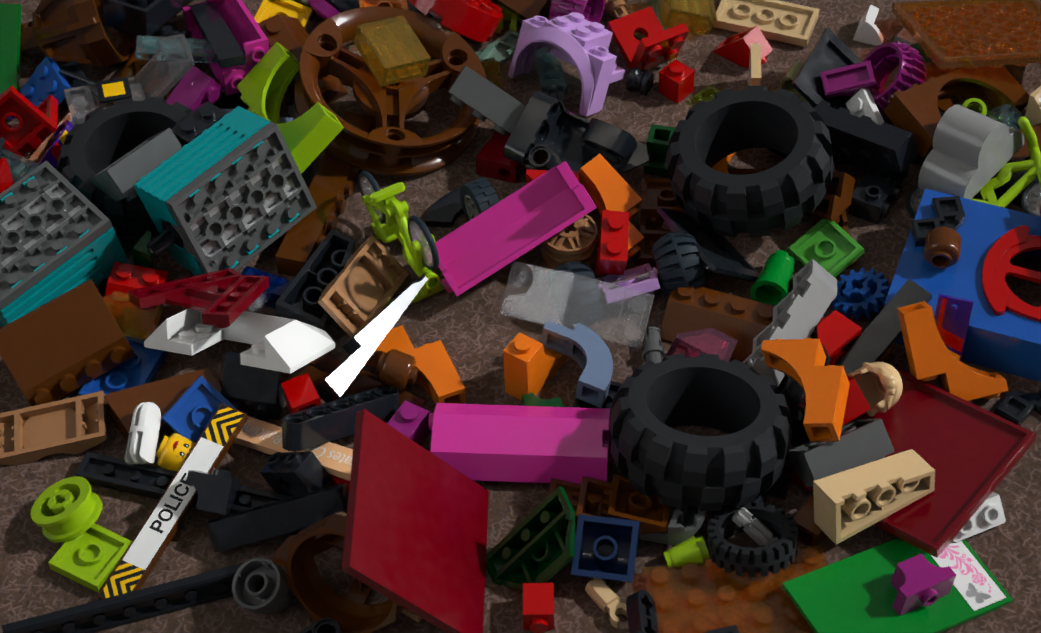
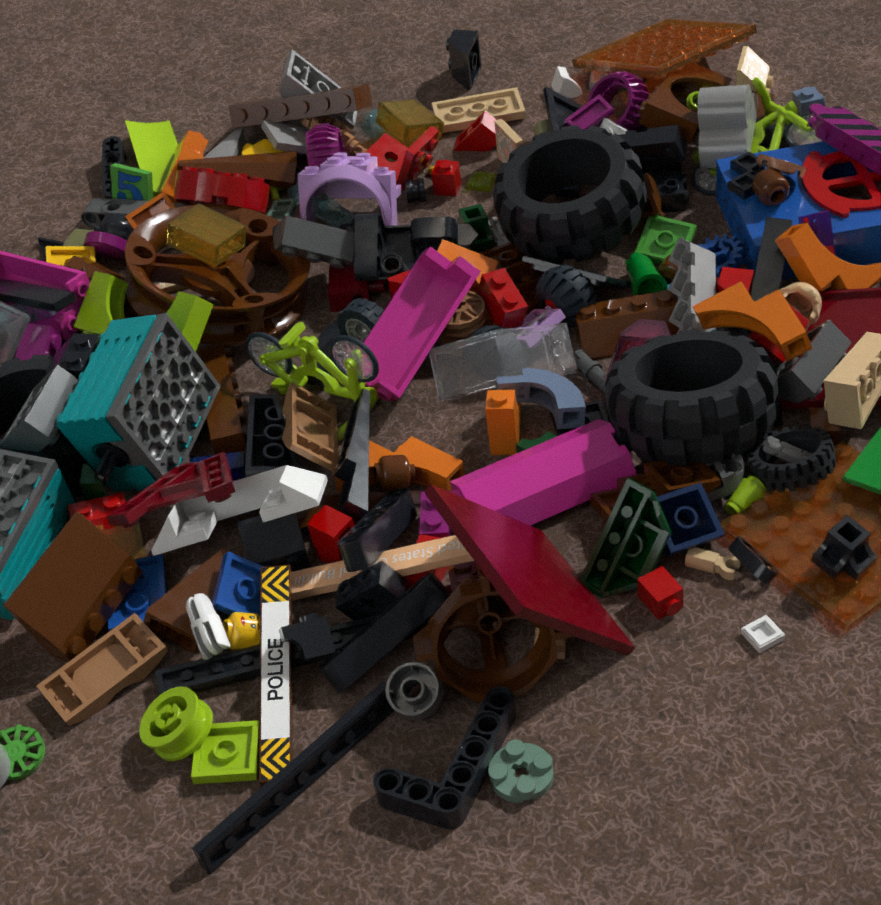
camera: 25 degrees left, 5 degrees down
(969, 228) = (781, 165): none -> nougat tile

